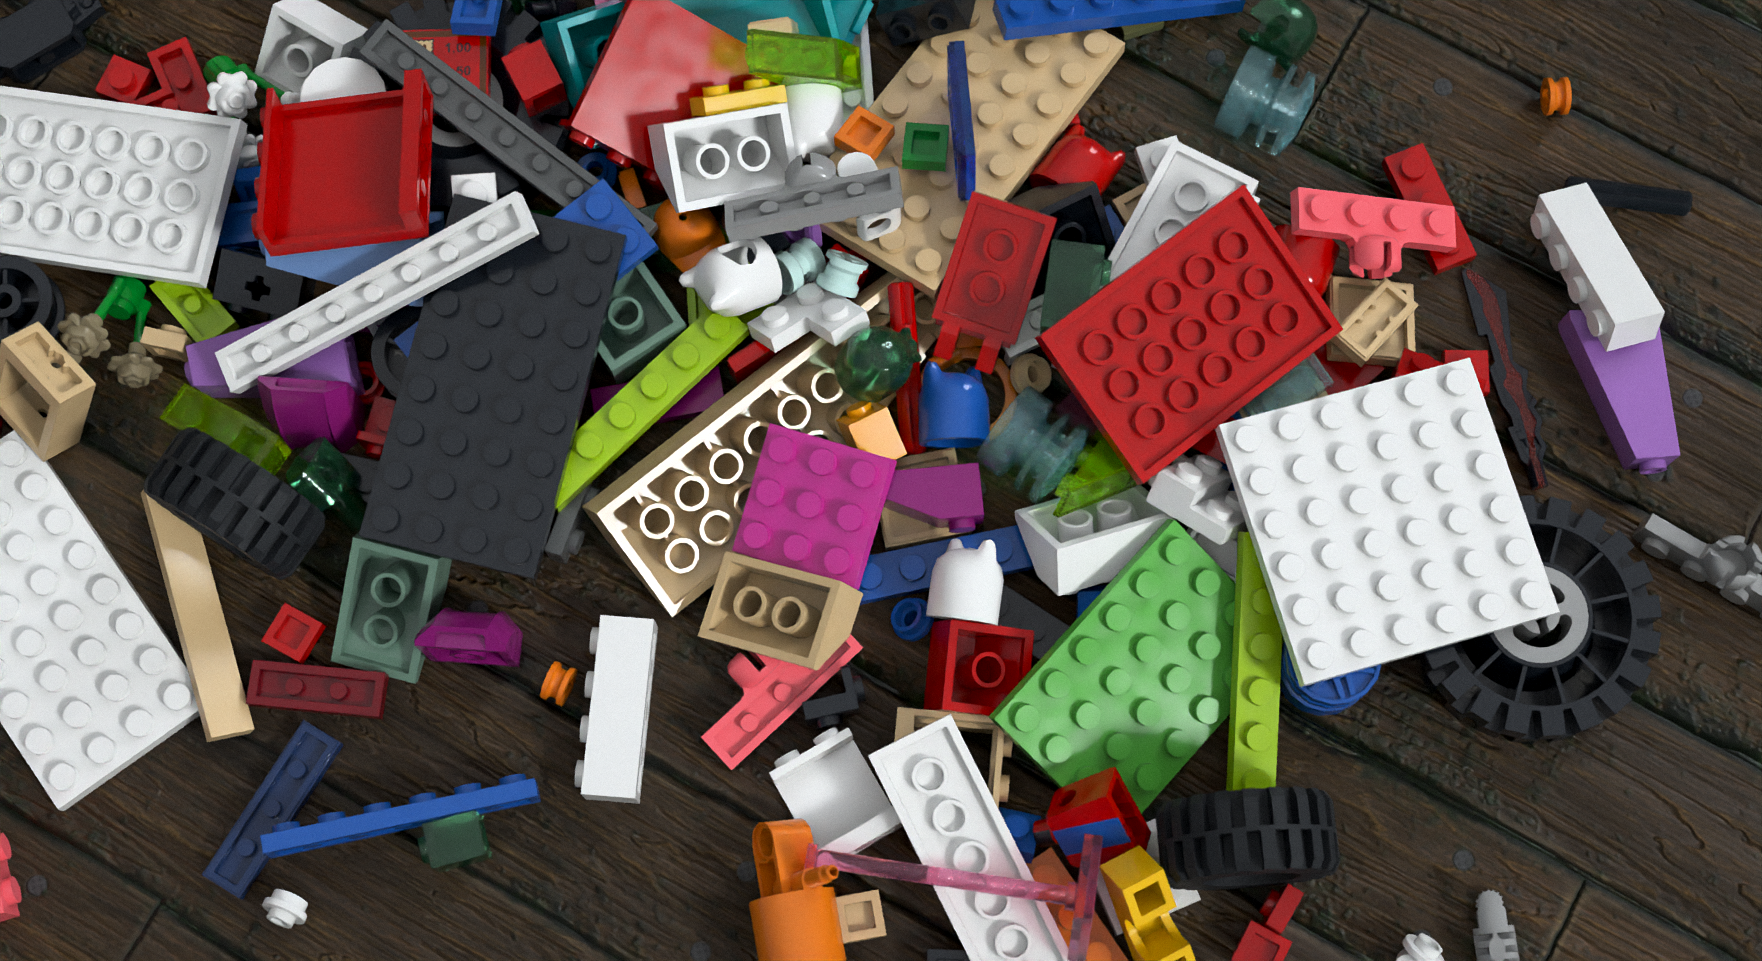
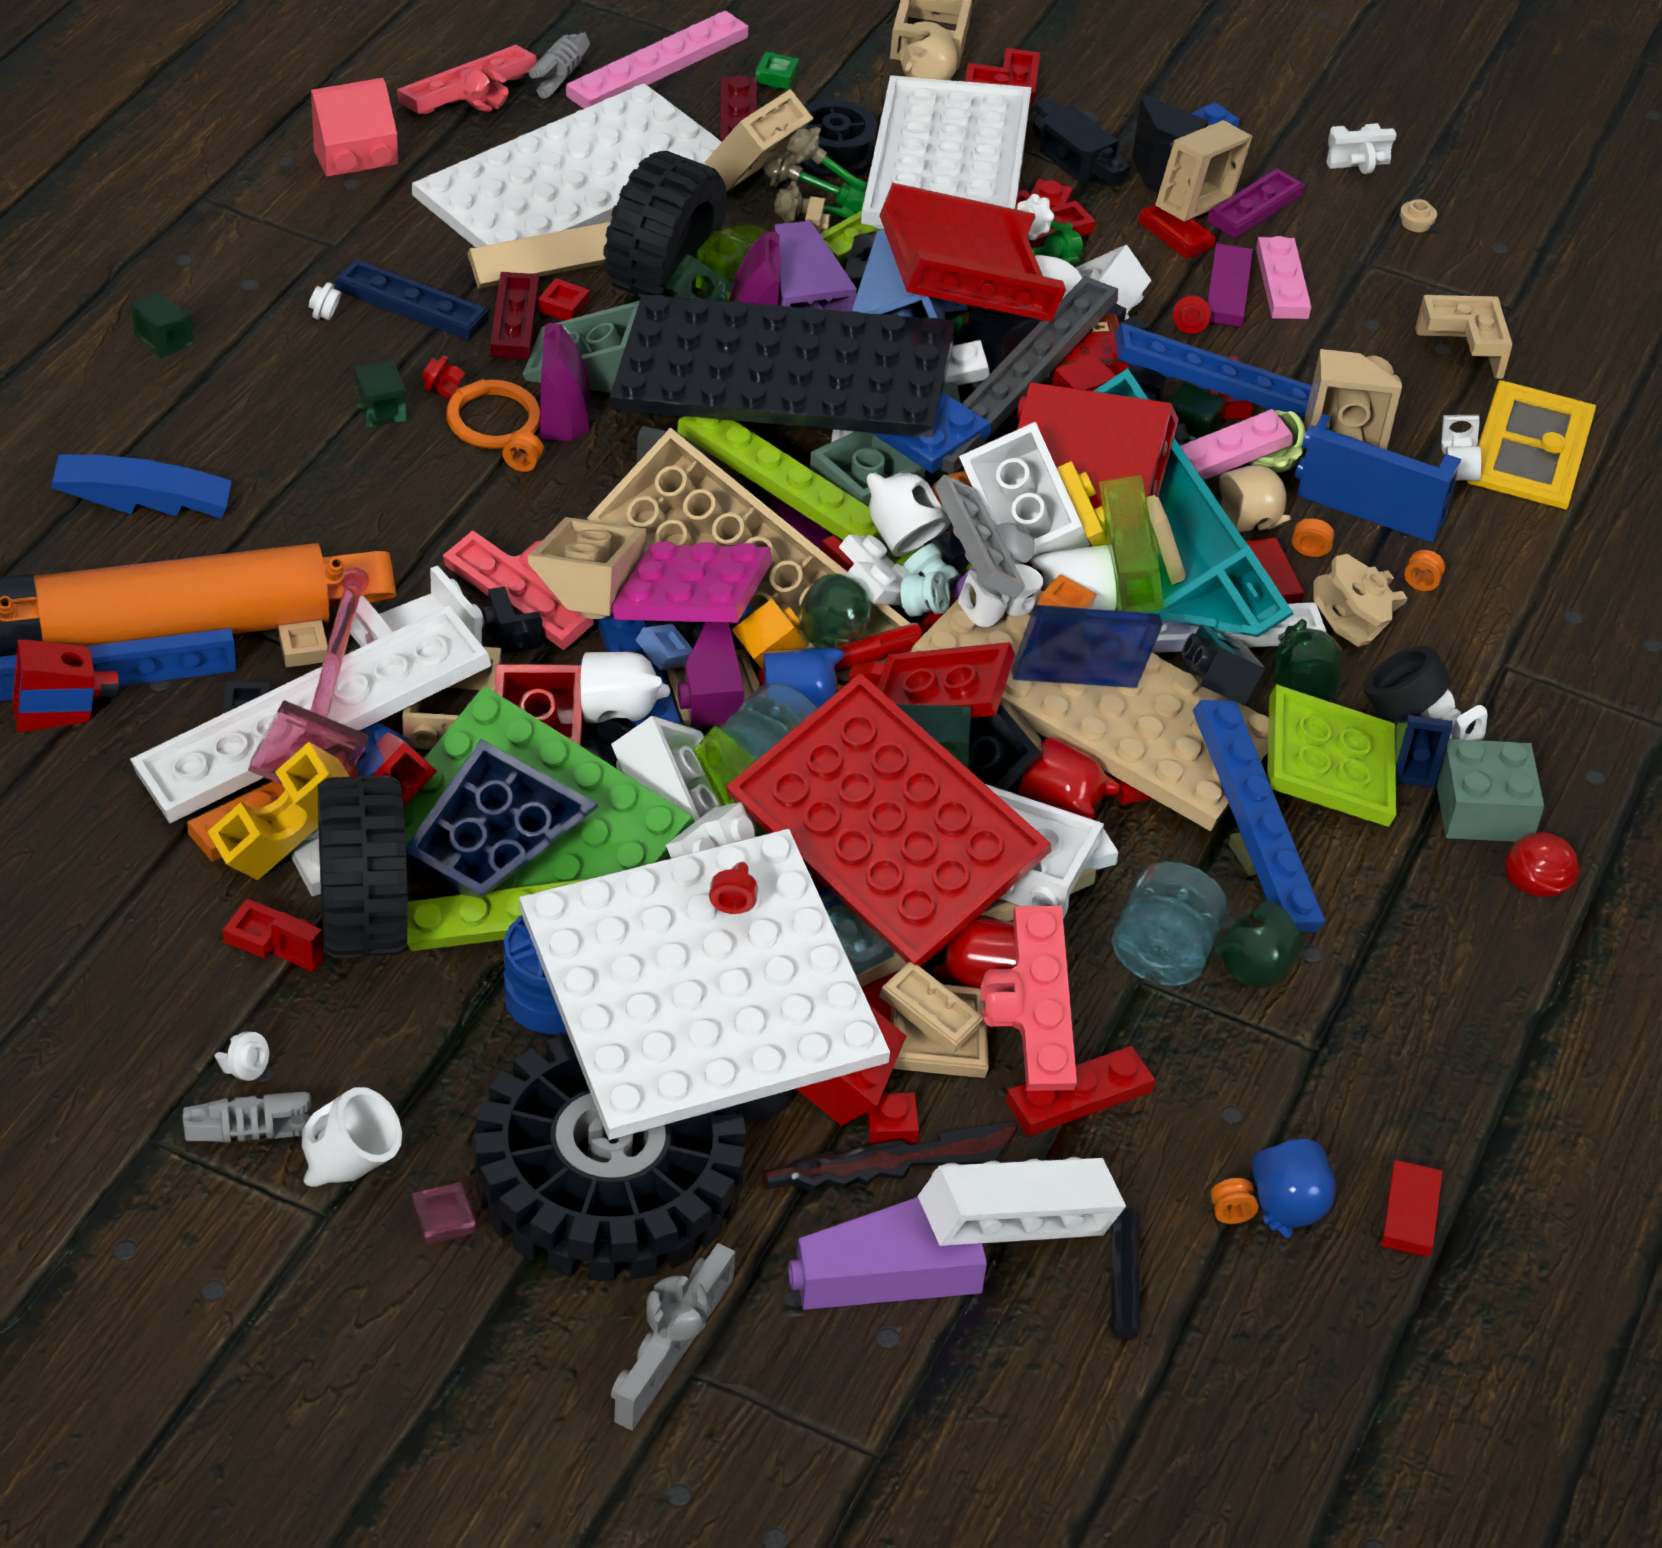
camera: 80 degrees right, 30 degrees down
(377, 292) = (861, 282): white plate -> none
(382, 819) = (399, 347): blue plate -> none
(426, 775) = (442, 377): none -> red plate
(443, 738) = (490, 387): none -> orange piece
(618, 709) = (498, 486): white brick -> none
(893, 541) = (664, 646): none -> medium blue plate
(1185, 708) = (492, 822): none -> dark blue wedge
(1325, 479) = (733, 890): none -> red tile
(1537, 851) = (350, 1137): none -> white piece
(1550, 43) = (1293, 1184): none -> blue helmet
(1595, 769) = (443, 1213): none -> clear pink plate

